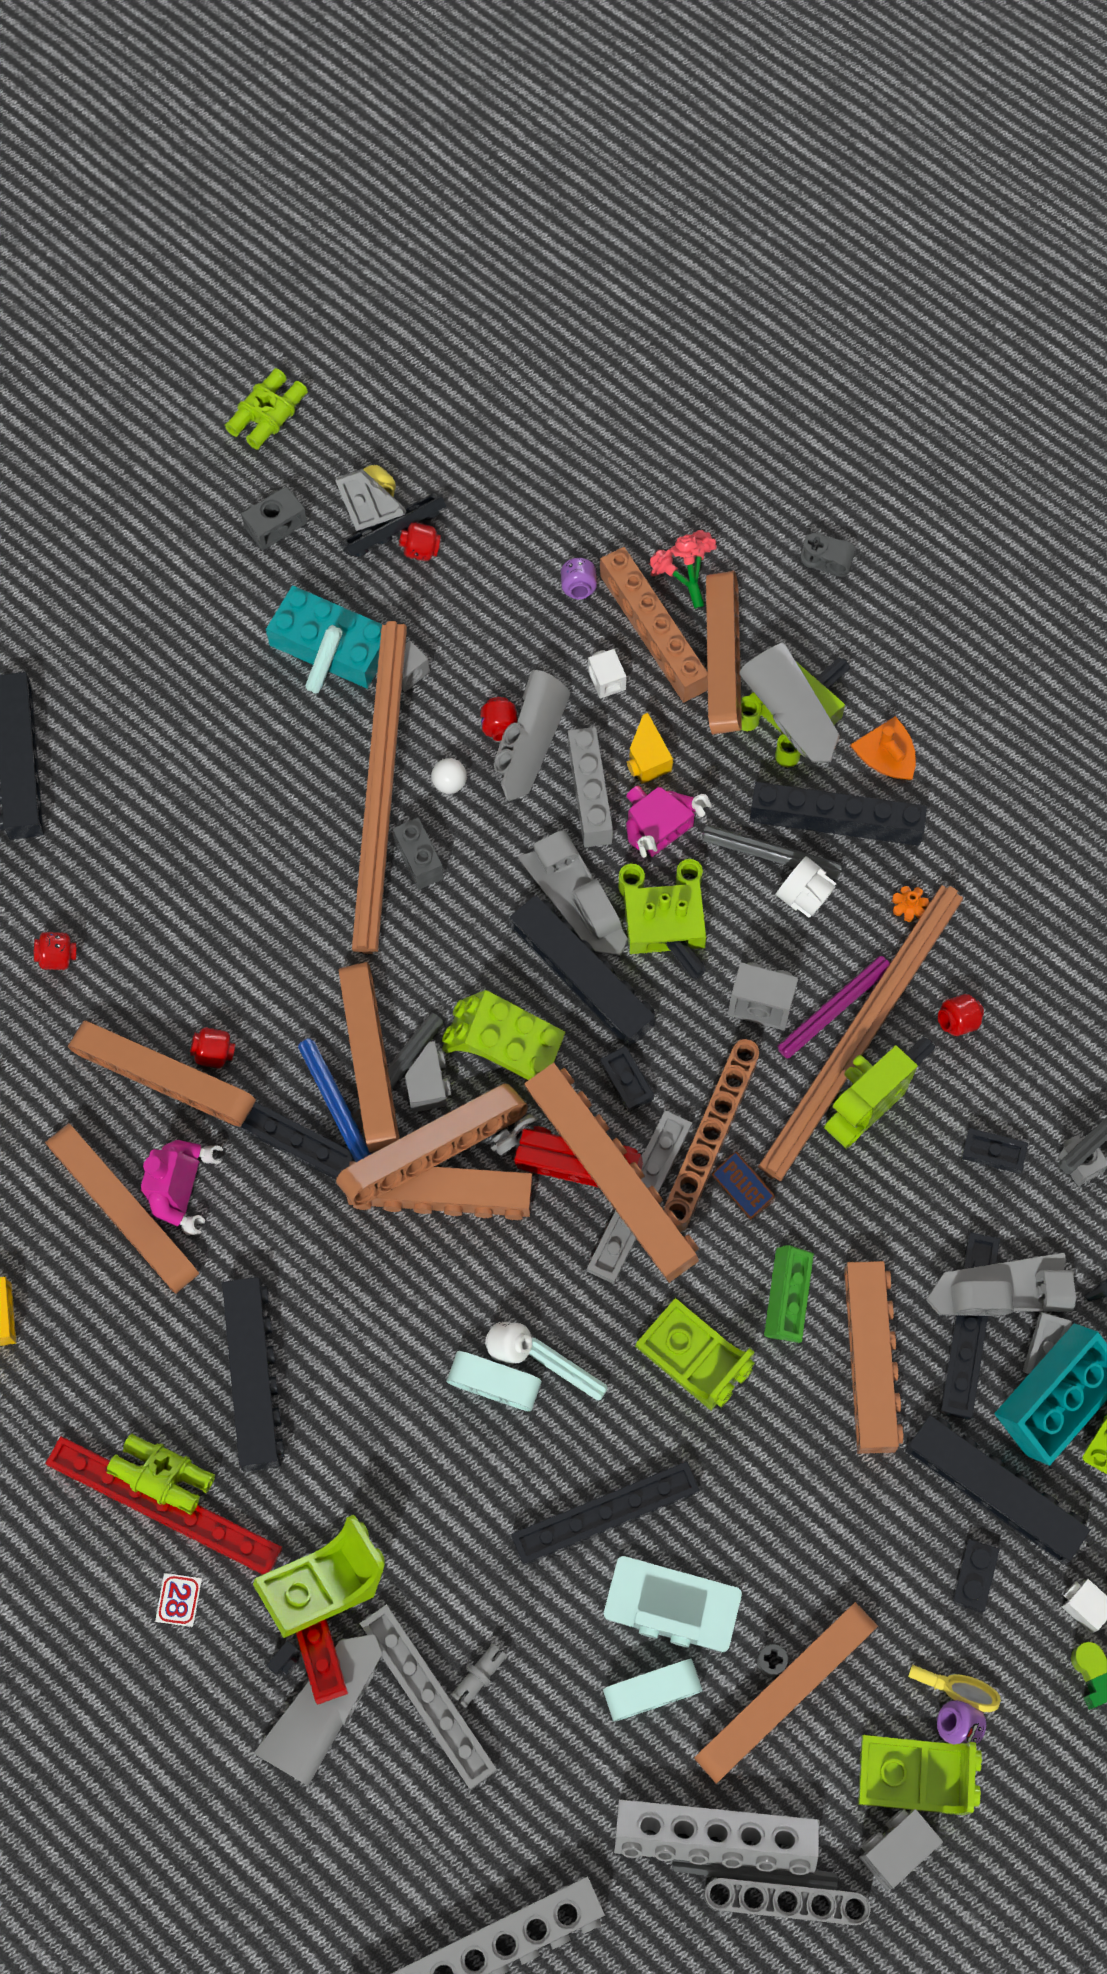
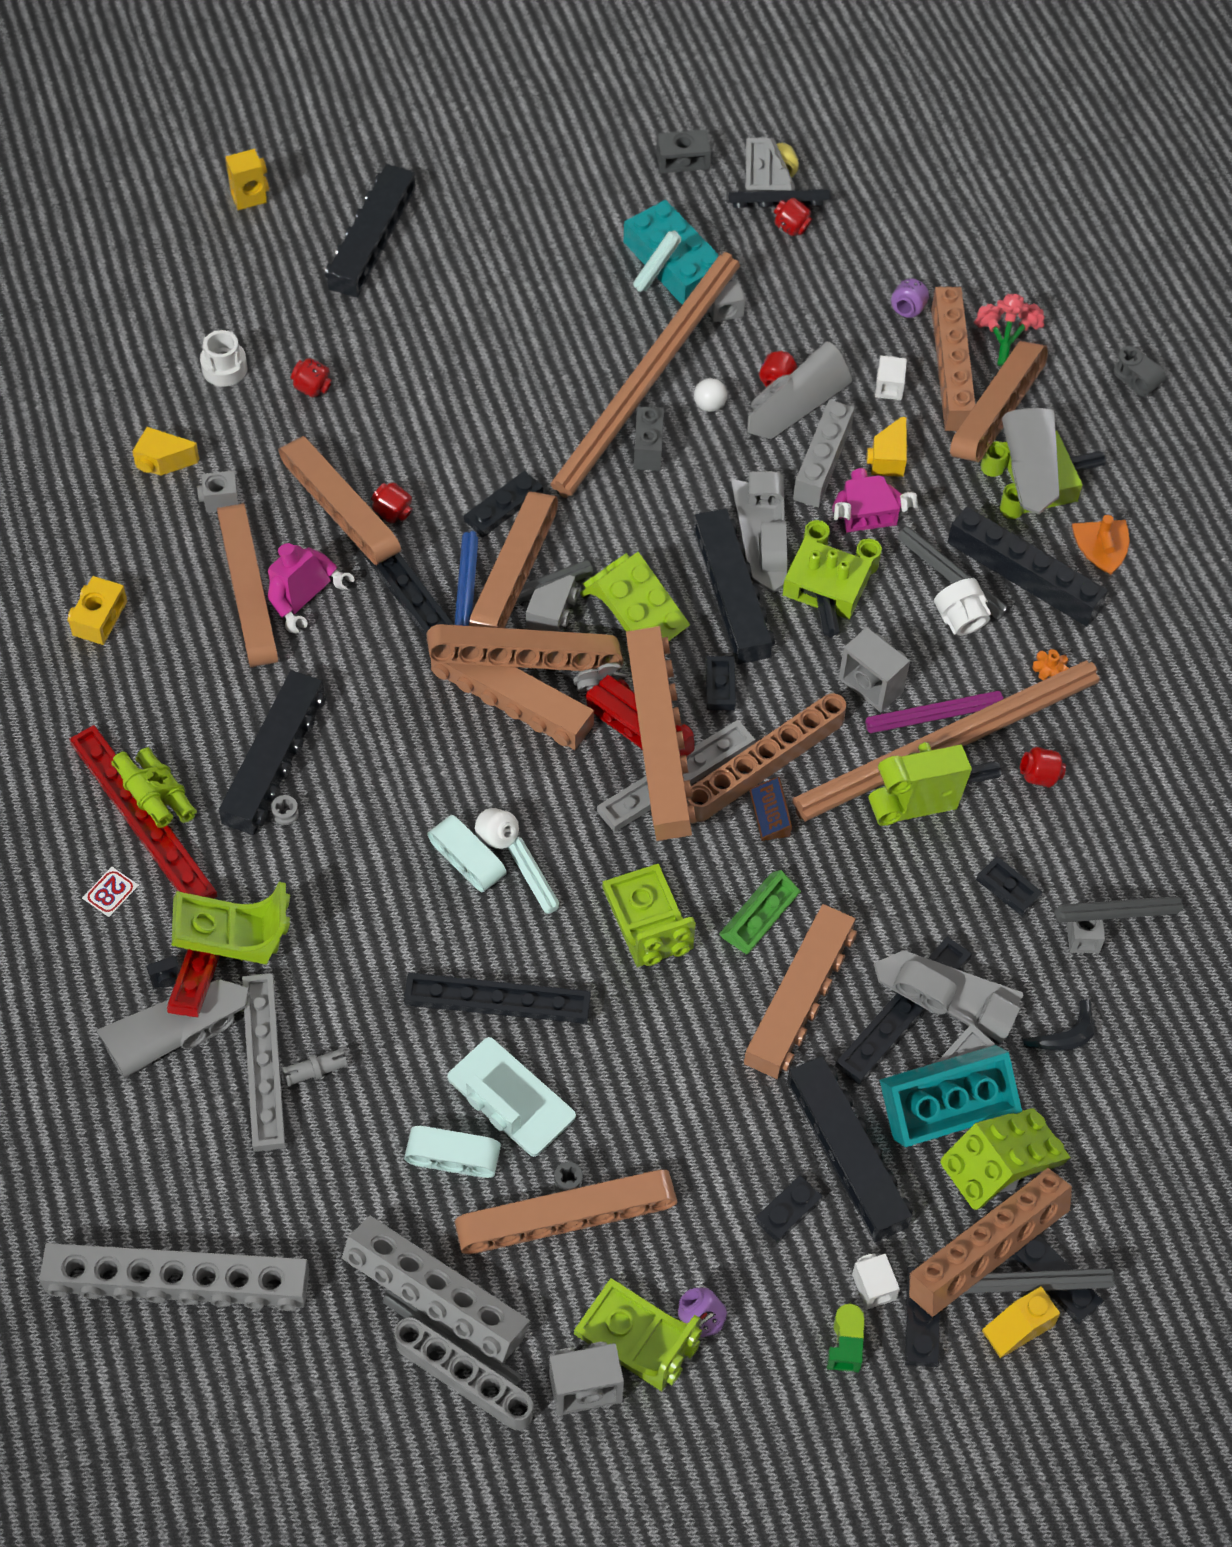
camera: 25 degrees right, 10 degrees down
(35, 1109) = (218, 490): none -> light grey brick
(266, 408) = (726, 72): lime pin -> none
(287, 1423) = (290, 816): none -> light grey bush
(316, 991) = (501, 504): none -> black plate
(960, 1688) = (727, 1293): light yellow piece -> none

